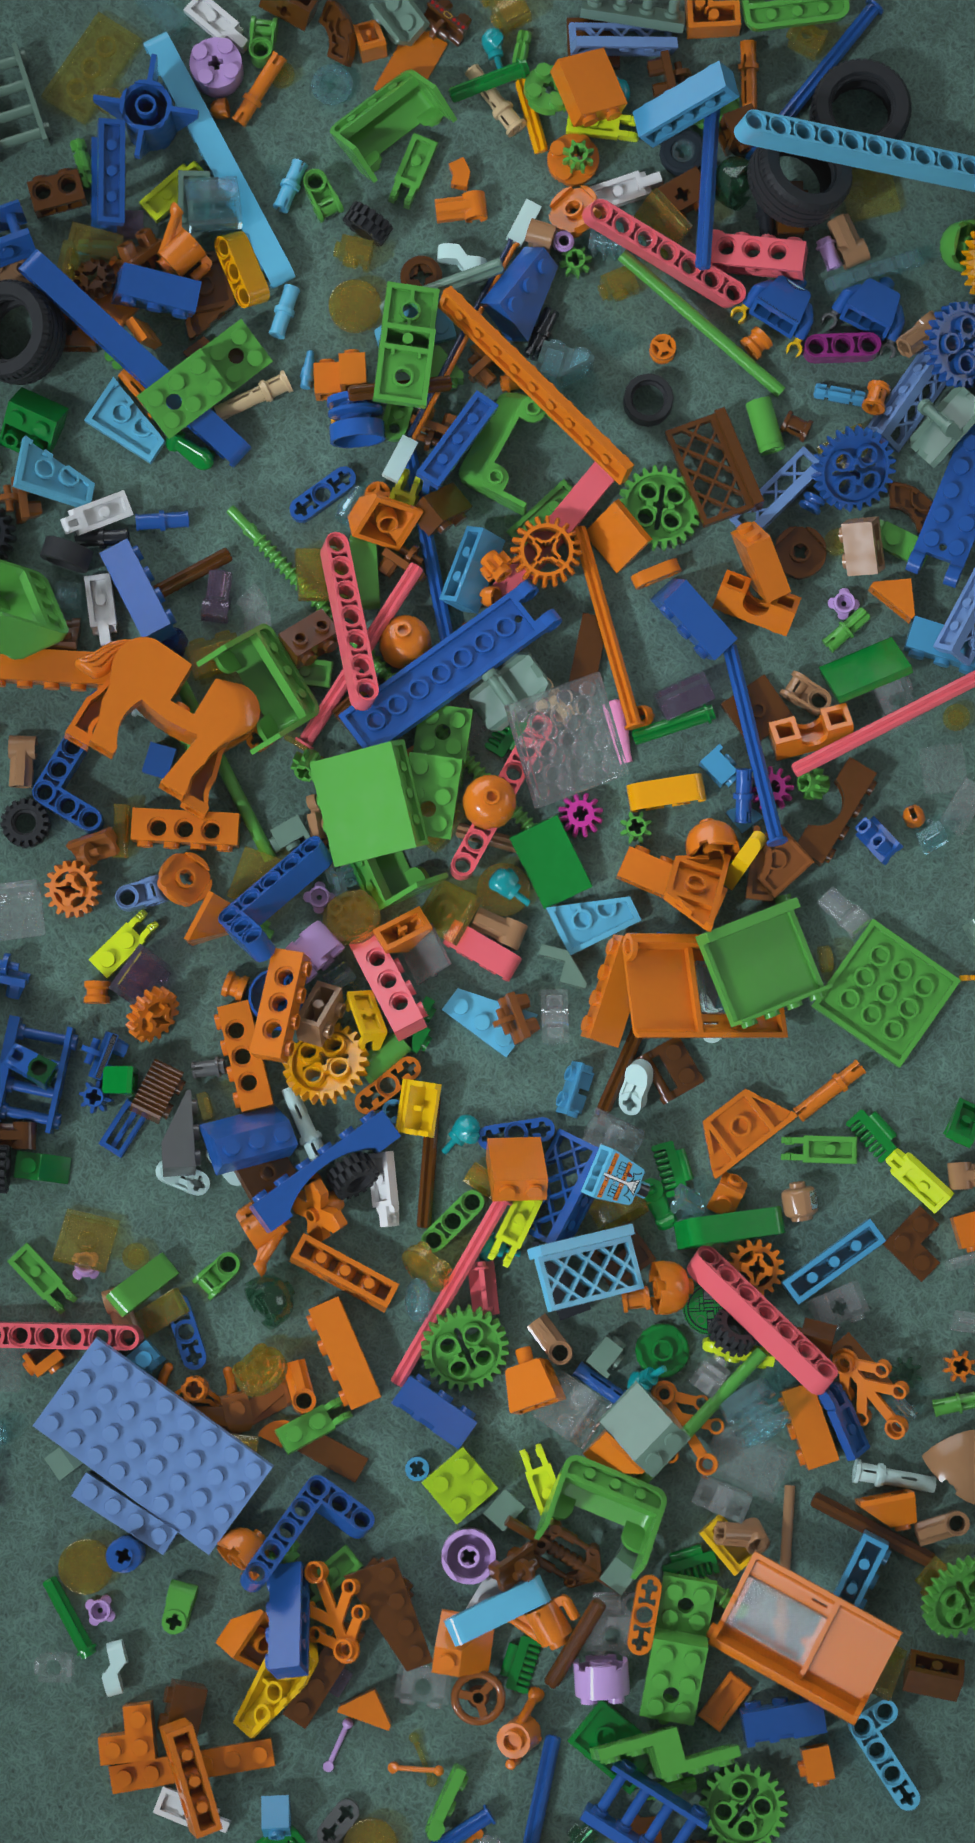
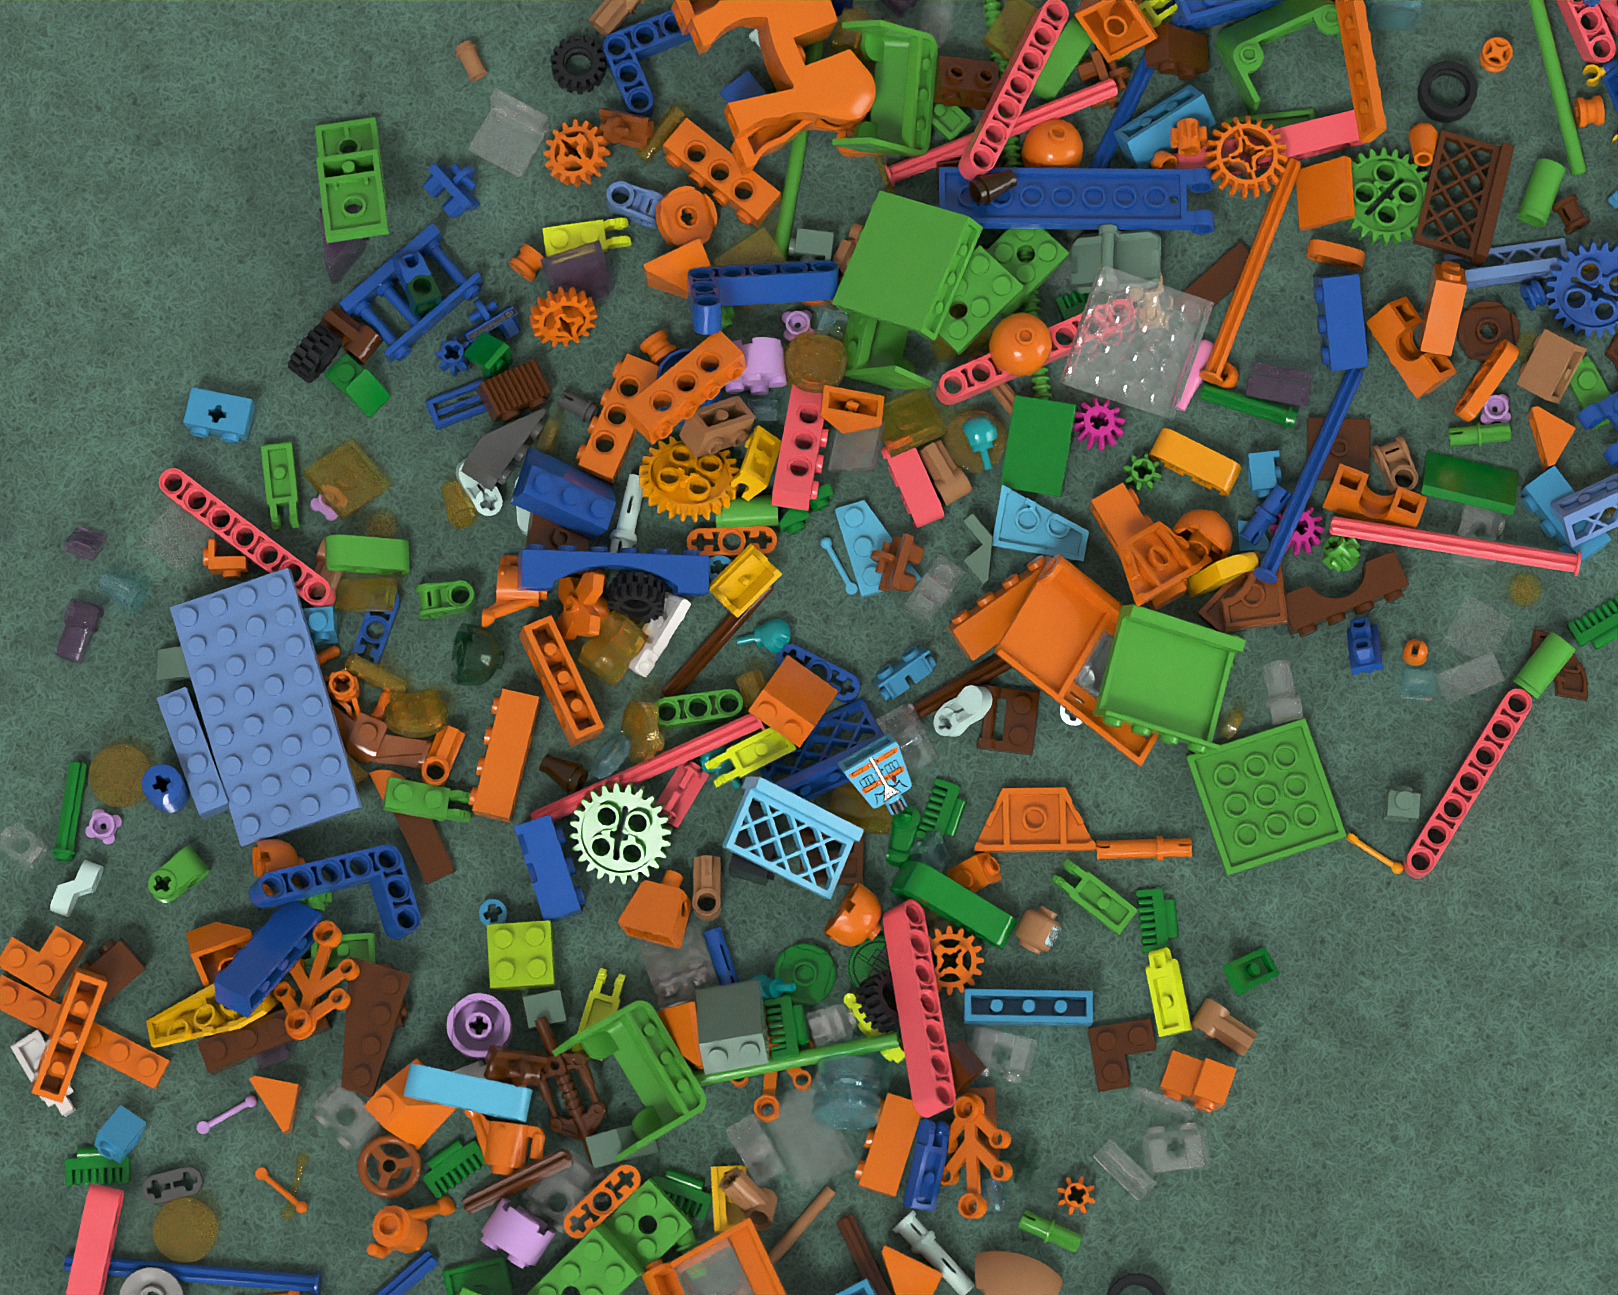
camera: 35 degrees right, 5 degrees down
(177, 1201) = (458, 506): none -> clear yellow cone
(211, 1364) = (375, 674): none -> clear yellow pin
(301, 763) = (870, 191): bright green gear -> none
(364, 1223) = (613, 649): none -> clear yellow brick
(386, 704) = (991, 186): none -> dark brown cone
(395, 1333) = (565, 773): none -> dark brown cone
(445, 1803) = (285, 1242): bright green hinge -> none
(494, 1056) = (851, 588): none -> medium azure hinge
(606, 1355) = (748, 938): sand green brick -> none
(636, 1299) = (815, 907): orange bush -> none
(658, 448) = (1423, 142): none -> orange cone
(684, 1394) = (794, 1027): none -> green piece
(825, 588) = (1486, 380): none -> orange beam

